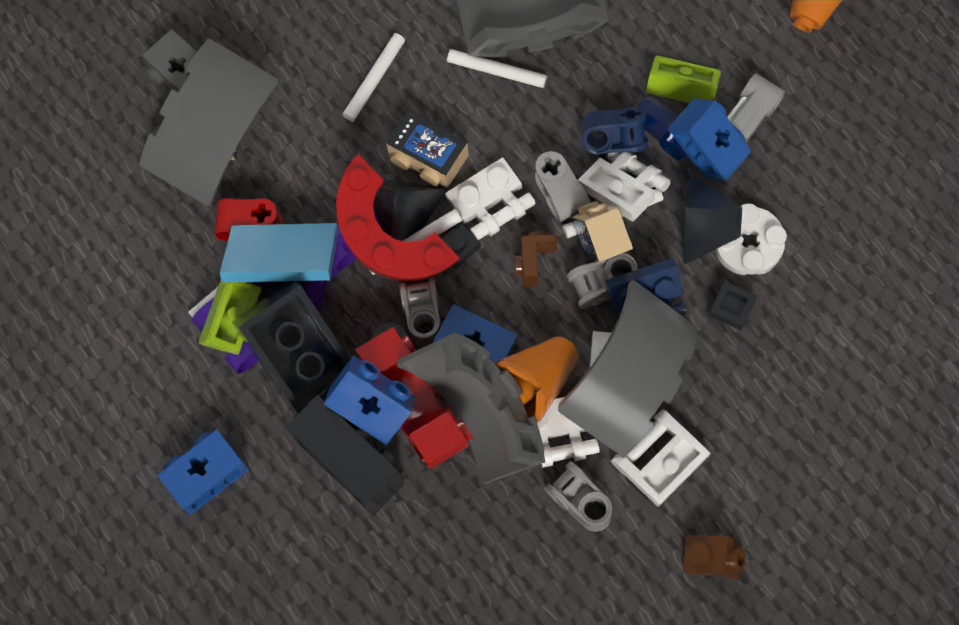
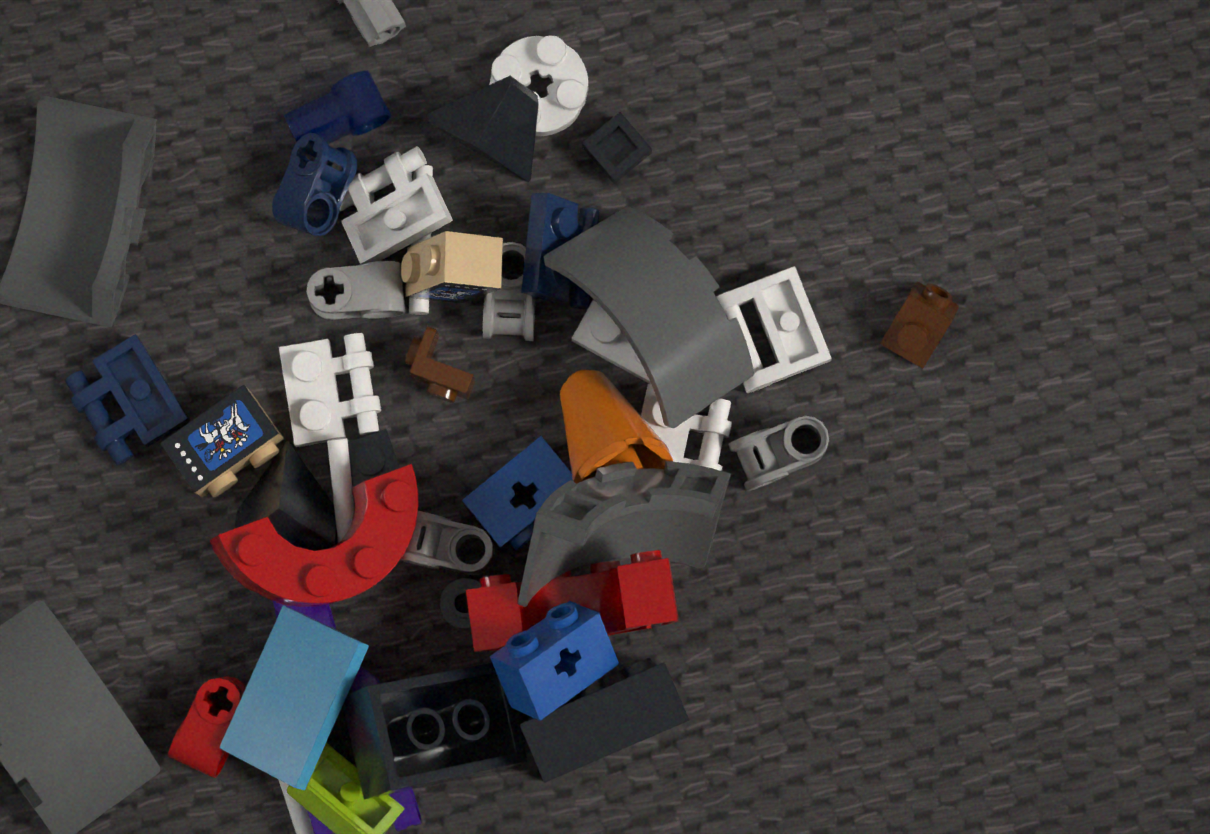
camera: 75 degrees left, 10 degrees up
(373, 77) = (76, 469): white bar -> none
(436, 91) = (139, 390): none -> dark blue plate
(497, 68) = (144, 297): white bar -> none
(682, 80) = (278, 62): lime slope -> none
(710, 139) = (387, 69): blue brick -> none

